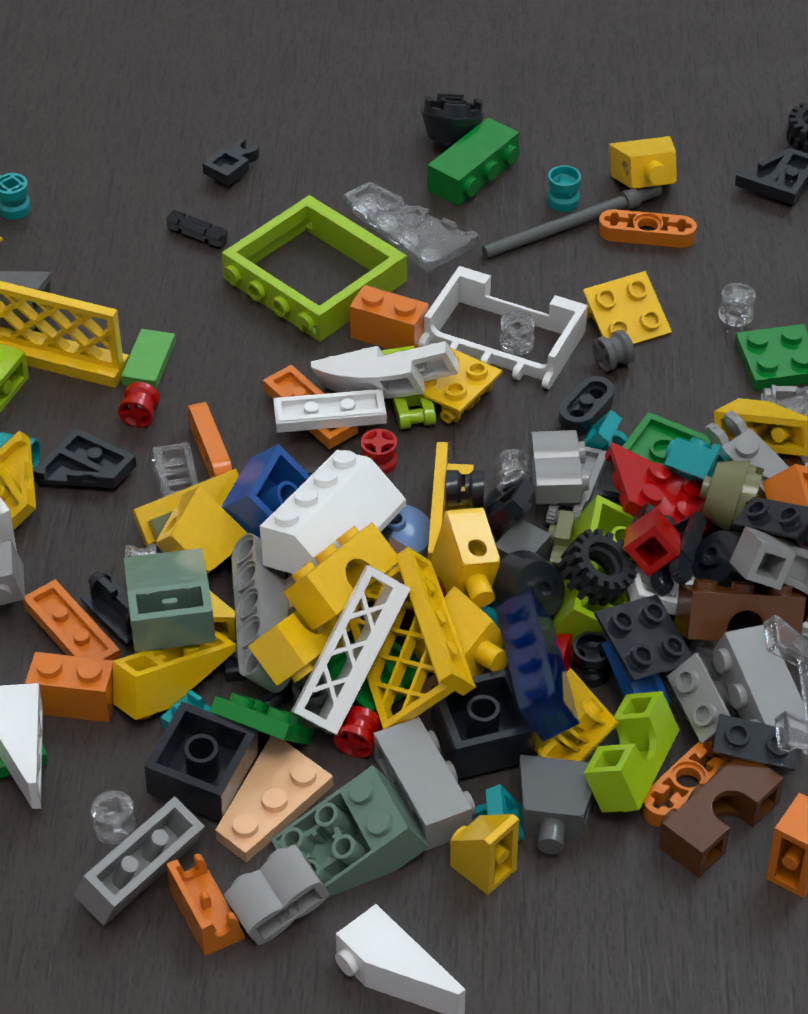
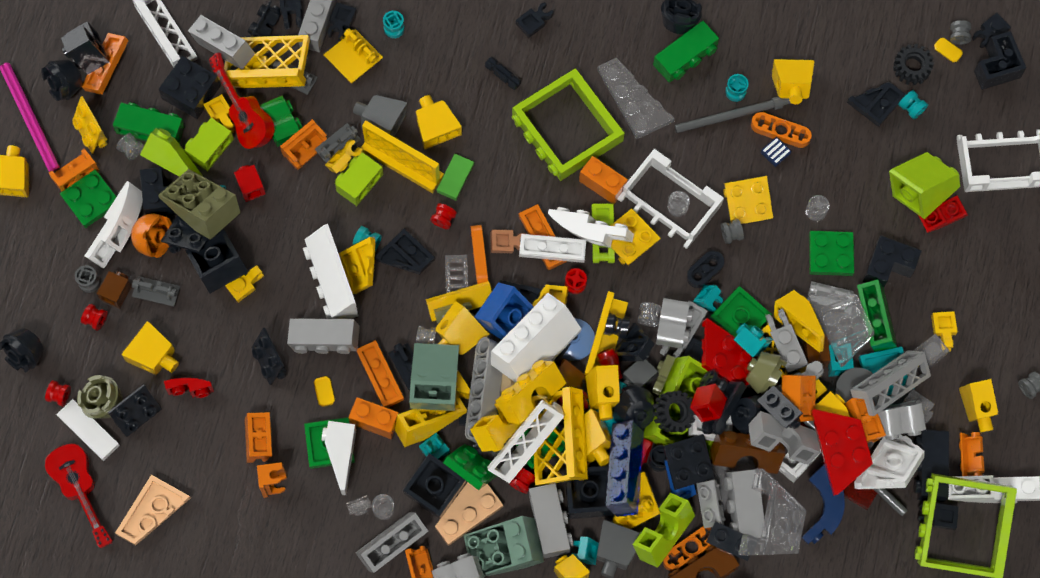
camera: 10 degrees right, 25 degrees up
(67, 821) = (359, 506): none -> clear plate
(108, 287) = (436, 122): none -> yellow torso
(248, 421) = (504, 242): none -> nougat plate
(648, 254) = (776, 151): none -> dark blue tile

